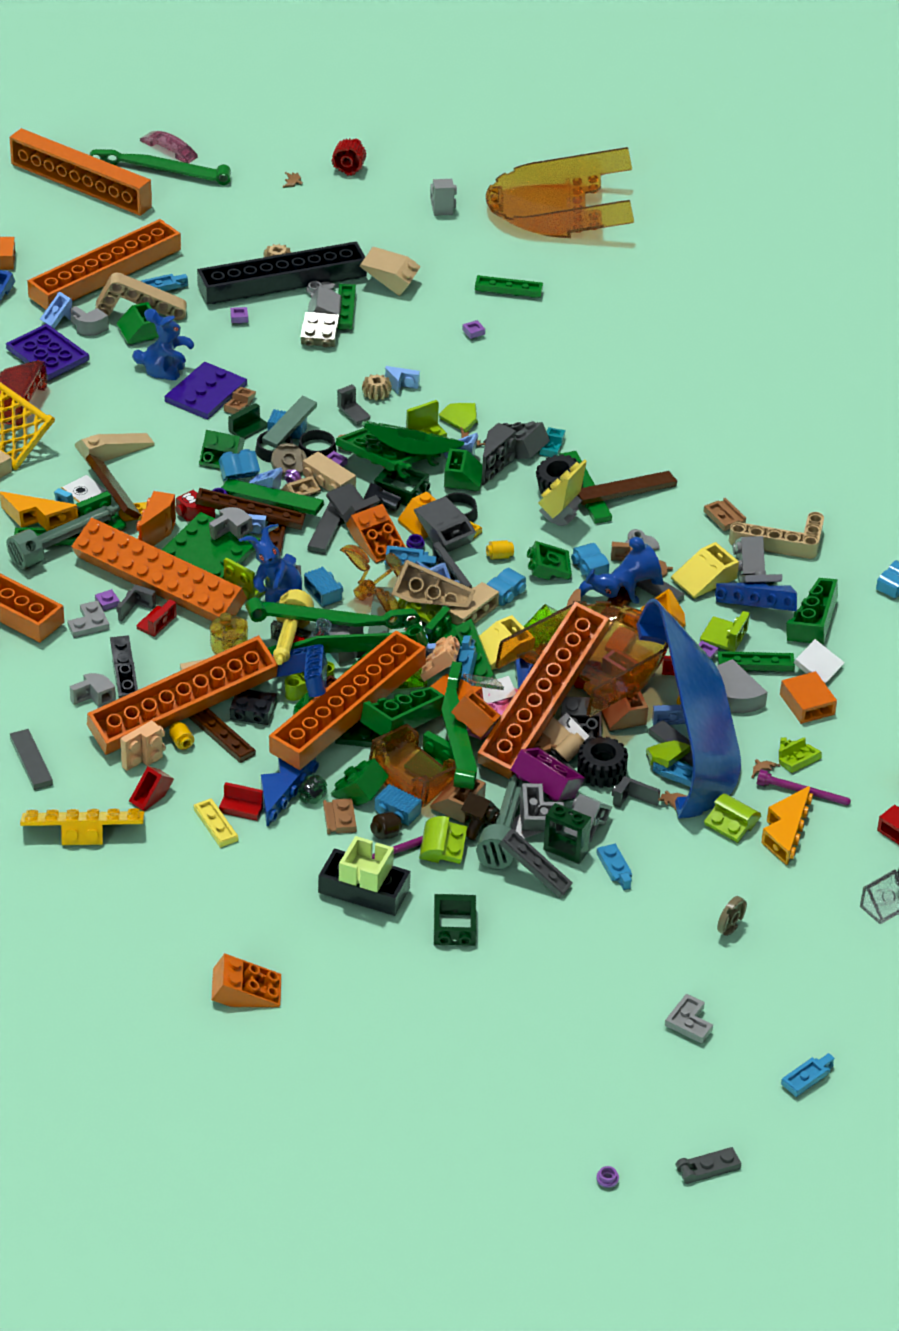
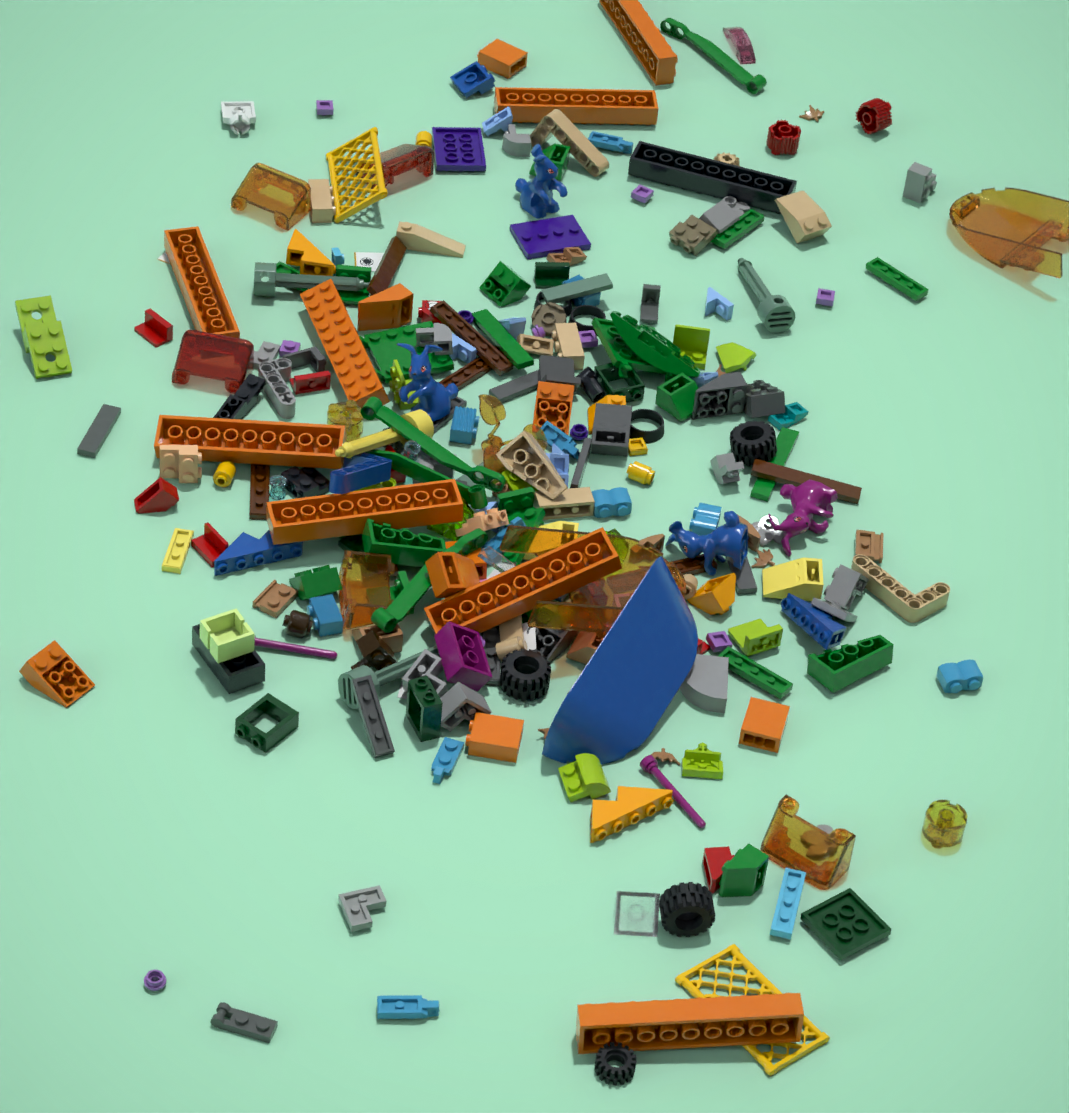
camera: 35 degrees right, 0 degrees up
(11, 358) = (424, 139): none -> yellow brick
(64, 641) = (214, 358): none -> clear red windscreen
(82, 827) = (73, 494): yellow bracket -> none
(95, 687) = (200, 404): light grey brick -> none
(141, 639) = (276, 373): none -> light grey beam
(238, 720) = (277, 487): none -> clear light blue bush
(239, 465) = (503, 302): dark azure brick -> none
(298, 210) = (783, 138): none -> red brick
(312, 789) = (274, 566): clear green head -> none
(376, 387) = (688, 300): tan gear -> none
(442, 840) = (326, 660): lime brick -> none
(456, 360) = (774, 309): none -> sand green piece
(545, 743) = (494, 636): medium nougat piece -> none
(549, 561) = (669, 502): green plate -> none
(563, 490) = (730, 448): light yellow slope -> none
(634, 789) = (523, 706): dark grey bracket -> none
(634, 824) = (494, 737): none -> orange brick
(653, 502) = (807, 500): none -> magenta animal
(731, 913) = (483, 848): dark tan tile -> none
(819, 659) = (807, 703): white tile -> none

